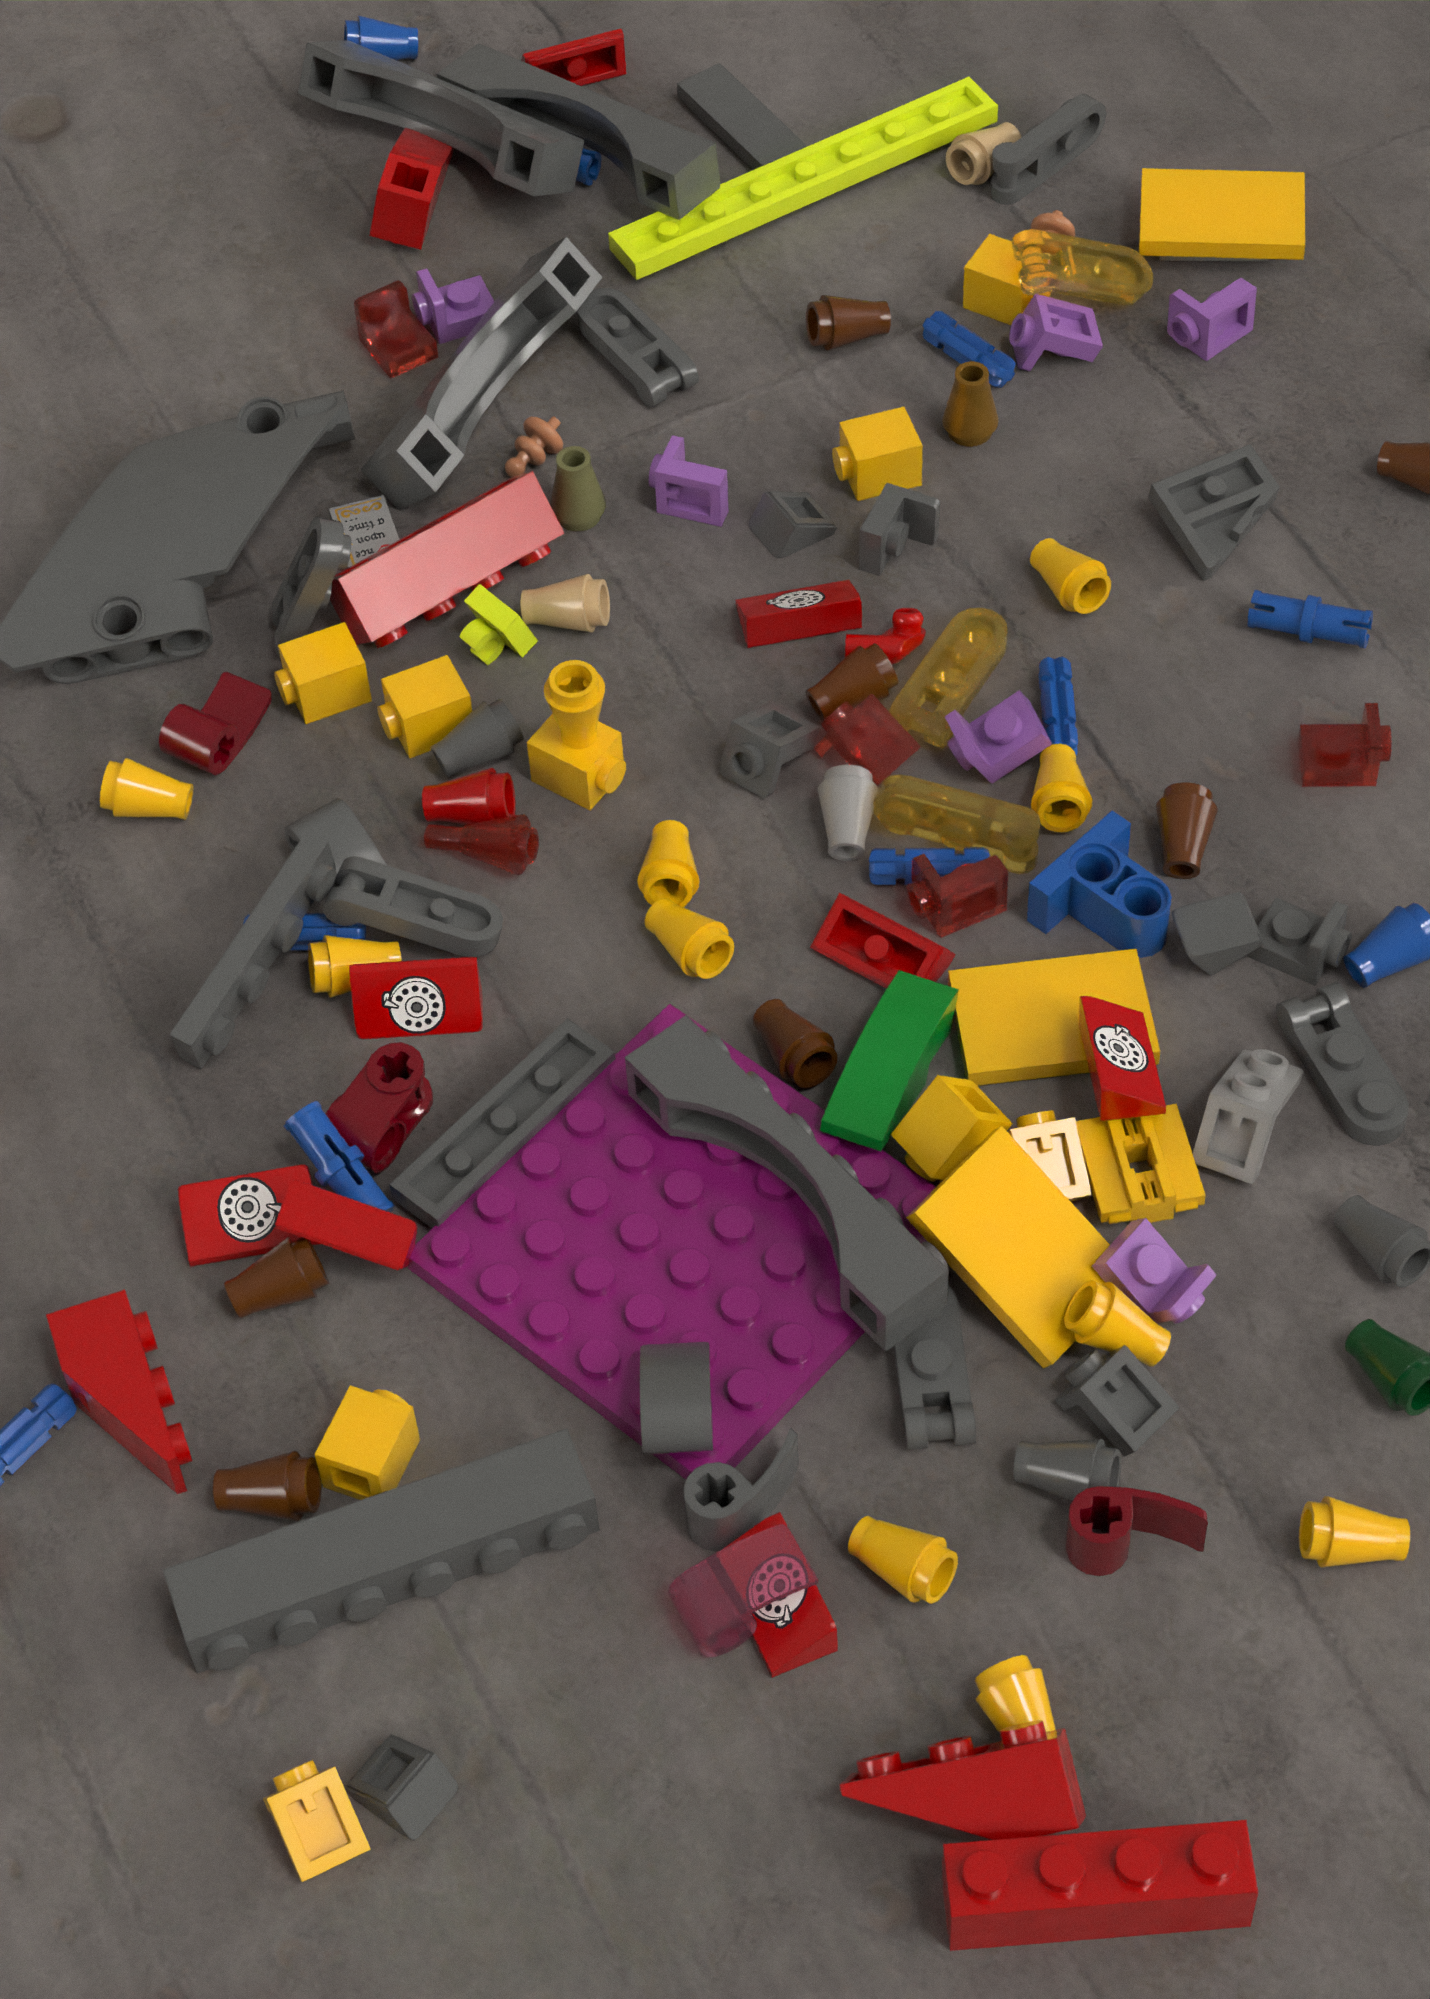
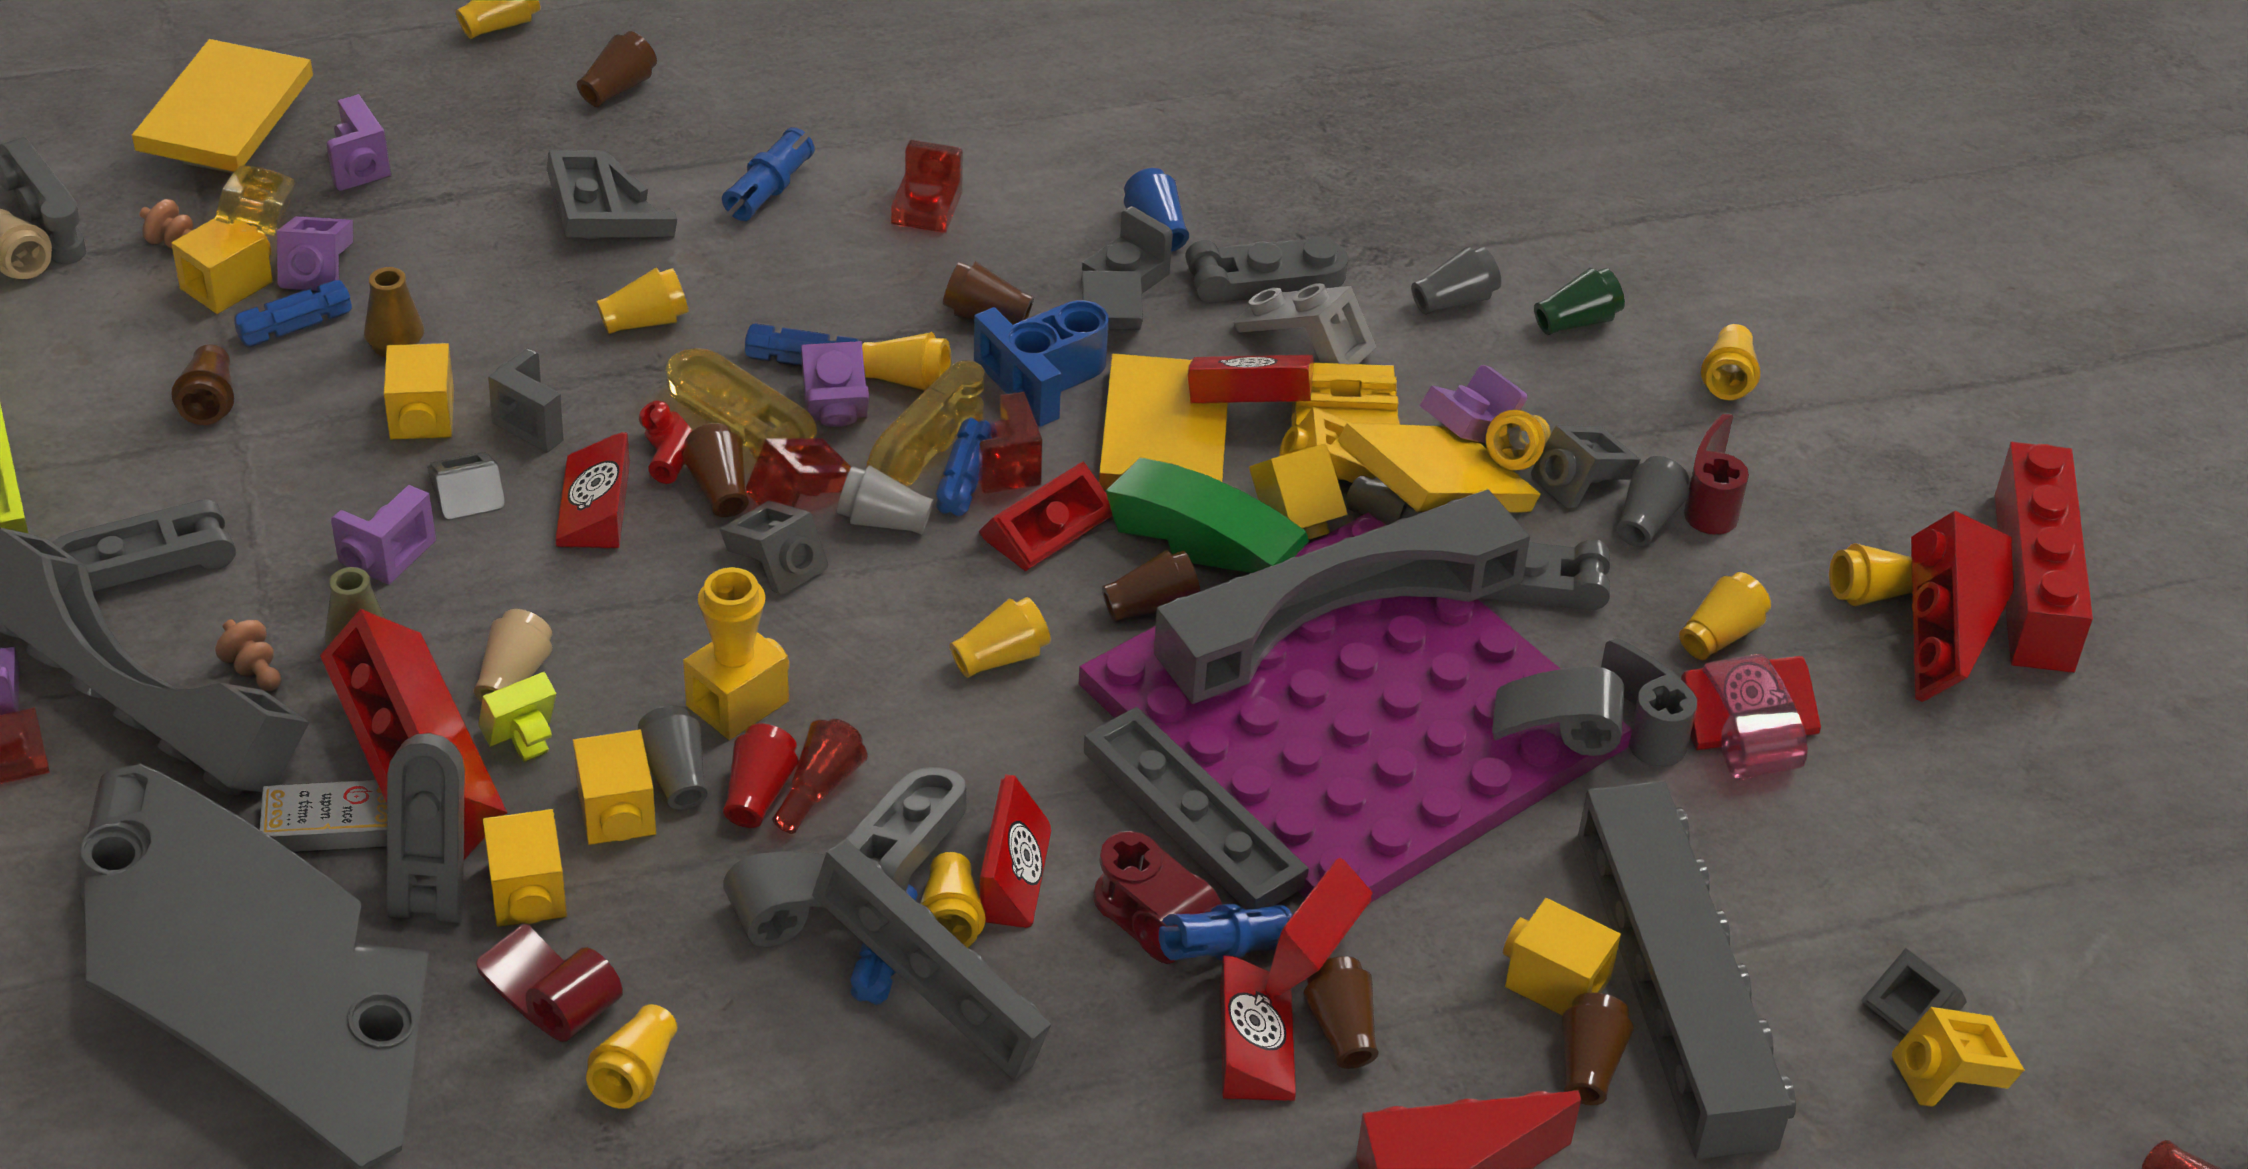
camera: 85 degrees left, 10 degrees down
(669, 865) = (907, 638): yellow cone -> none

